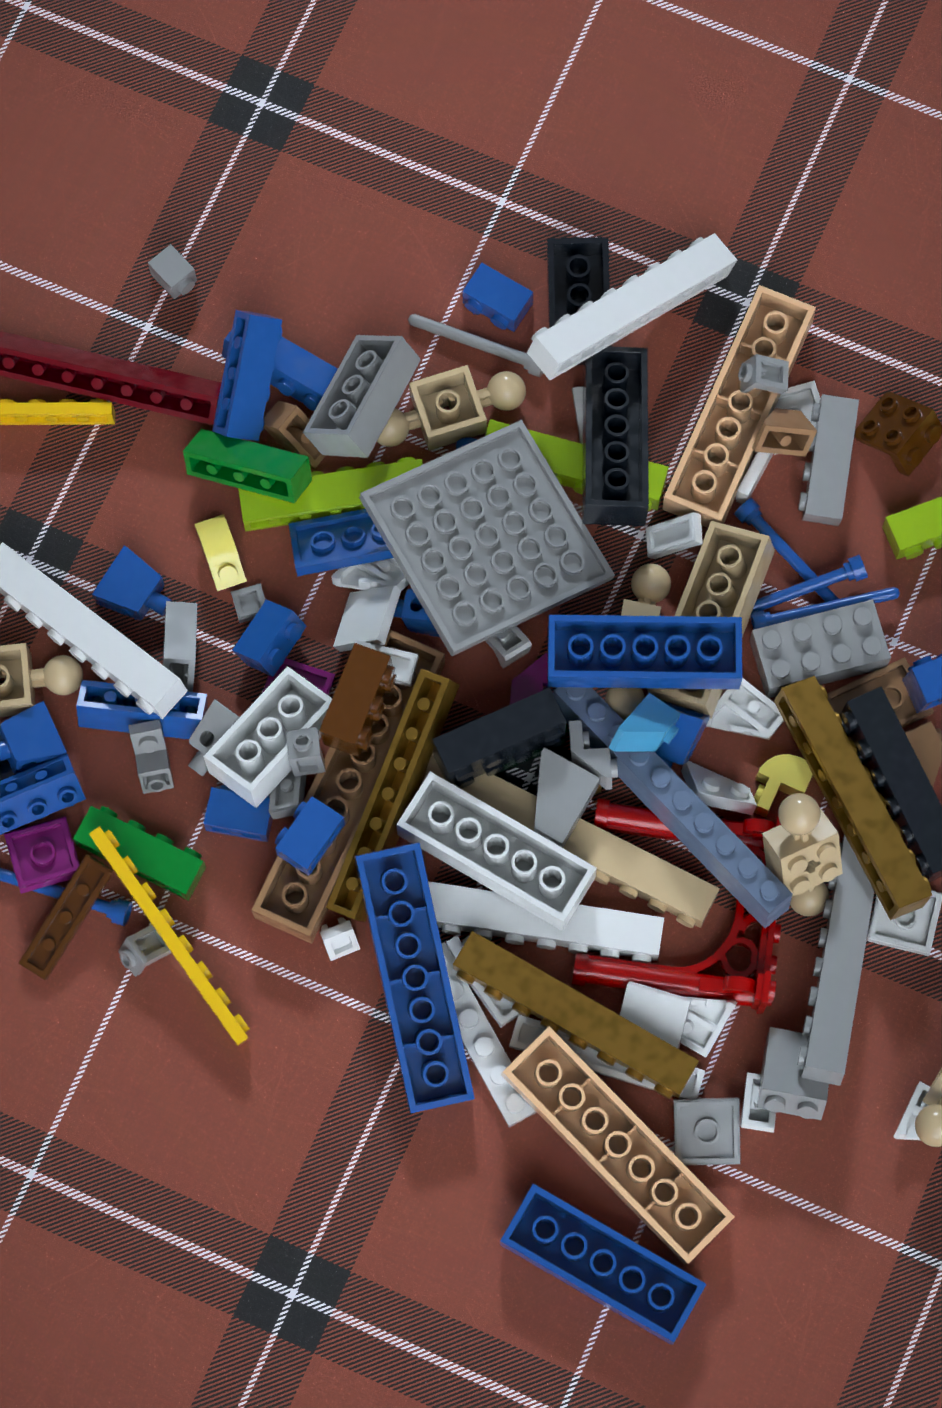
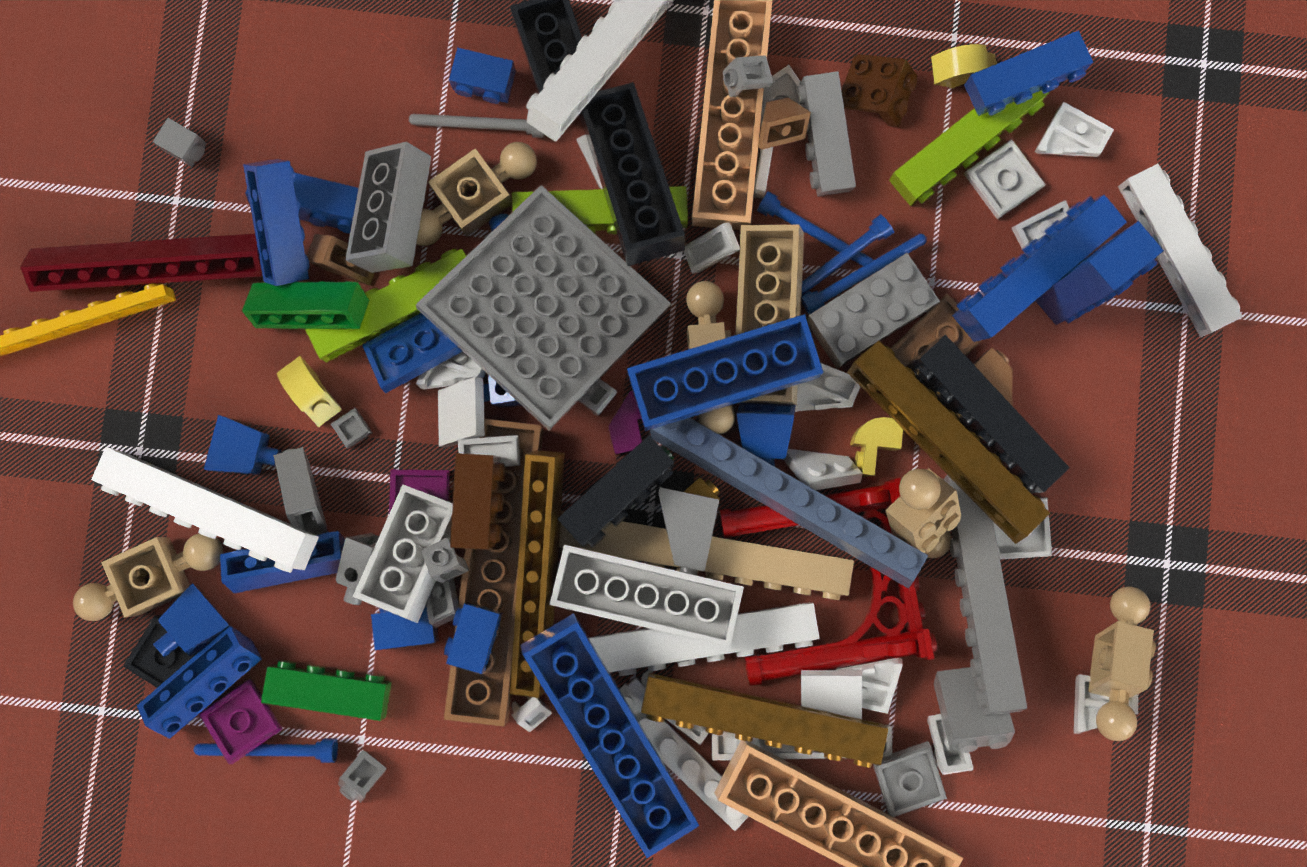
camera: 20 degrees left, 10 degrees up
(66, 917) = (280, 773): reddish brown tile -> none
(151, 756) = (308, 600): light grey slope -> none
(162, 923) = (368, 757): yellow plate -> none
(269, 638) = (379, 457): blue brick -> none
(593, 760) = (710, 484): light grey slope -> none
(646, 727) = (747, 439): dark azure slope -> none

